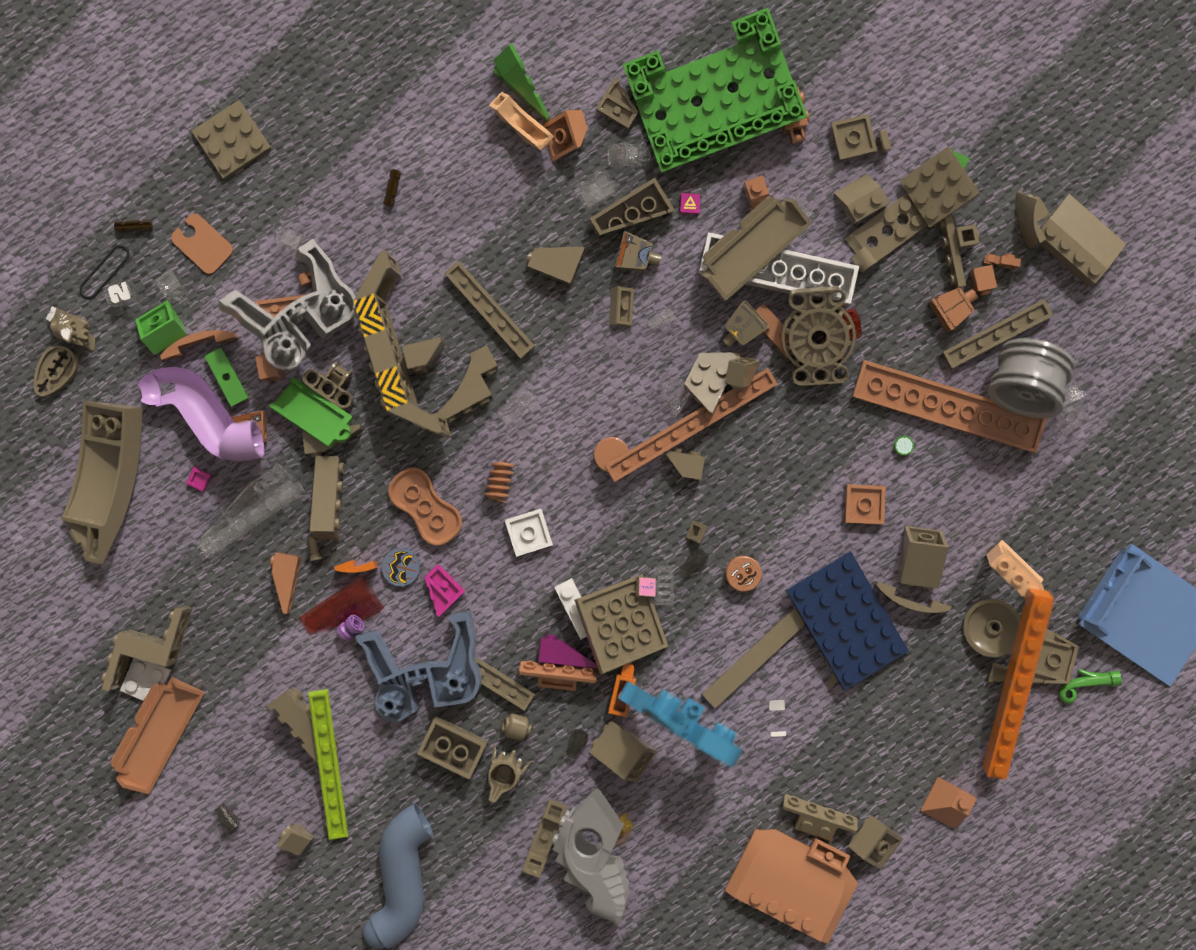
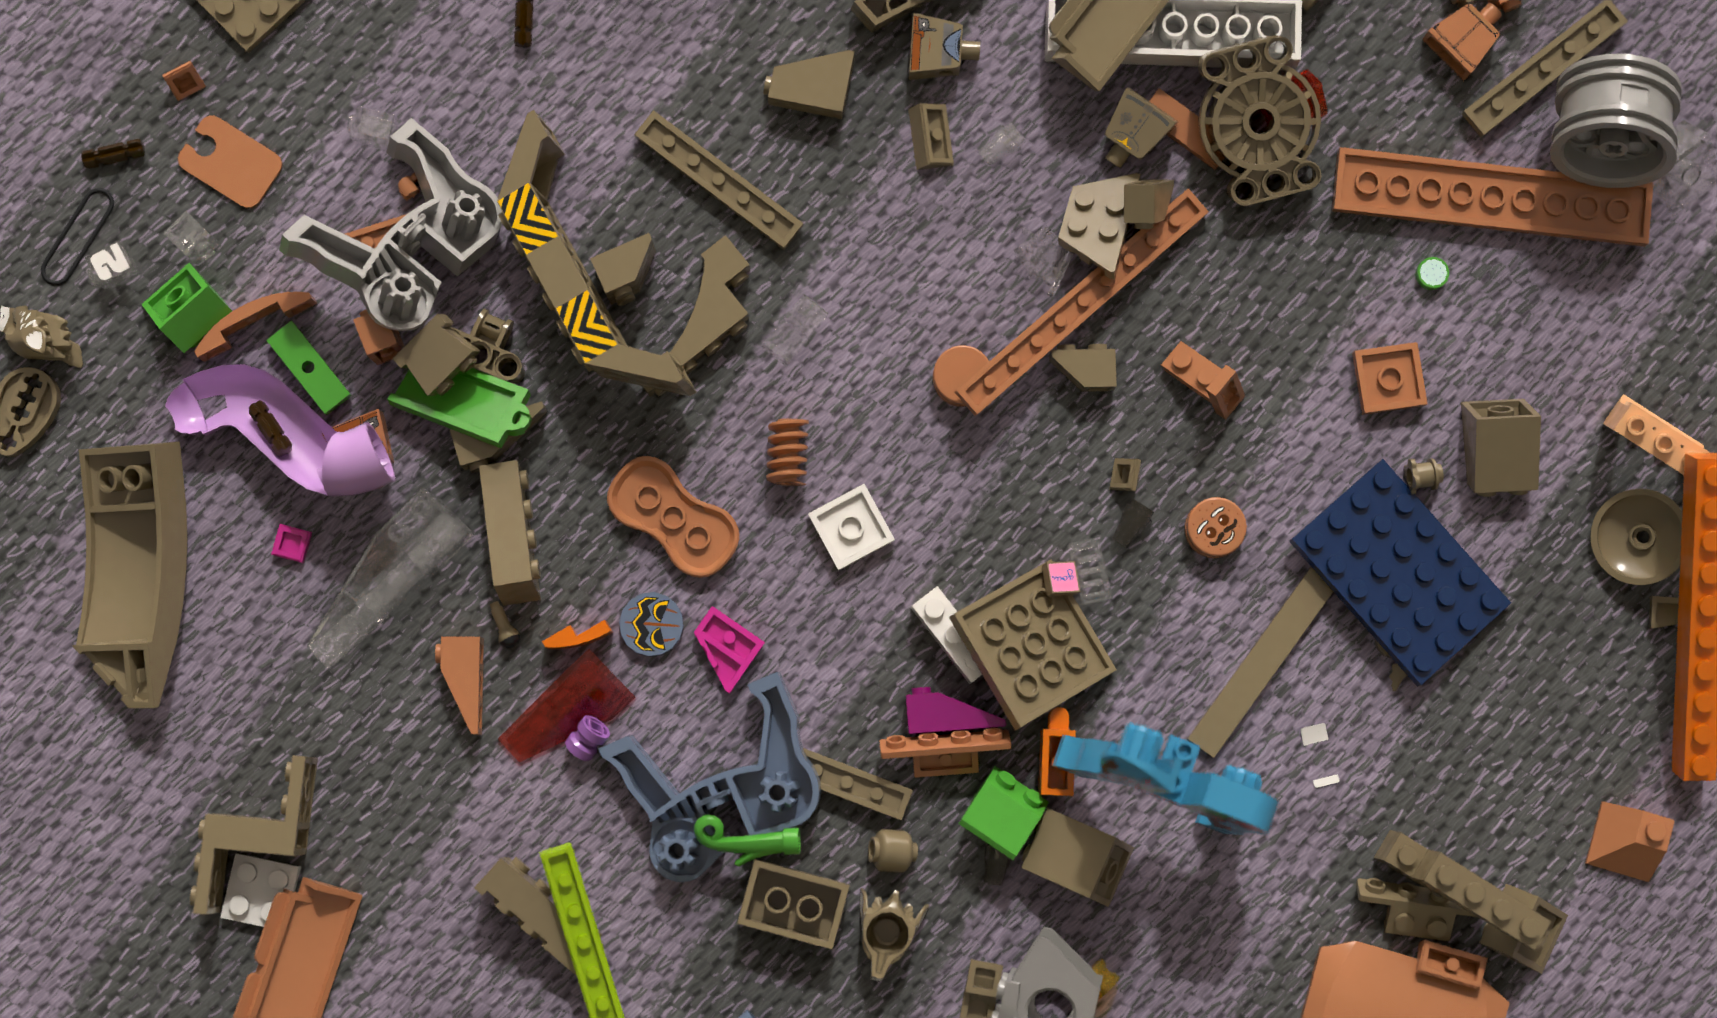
camera: 15 degrees left, 5 degrees down
(182, 189) = (184, 80): none -> nougat slope
(197, 410) = (270, 428): none -> dark brown axle
(302, 386) = (437, 355): none -> dark tan hips
(433, 710) = (753, 846): none -> bright green plant
(584, 718) = (1004, 812): none -> bright green slope
(754, 483) = (1205, 378): none -> nougat bracket
(843, 814) = (1462, 888): none -> dark tan arch
(872, 566) = (1423, 475): none -> dark tan brick
(932, 606) = (1458, 512): dark tan slope -> none

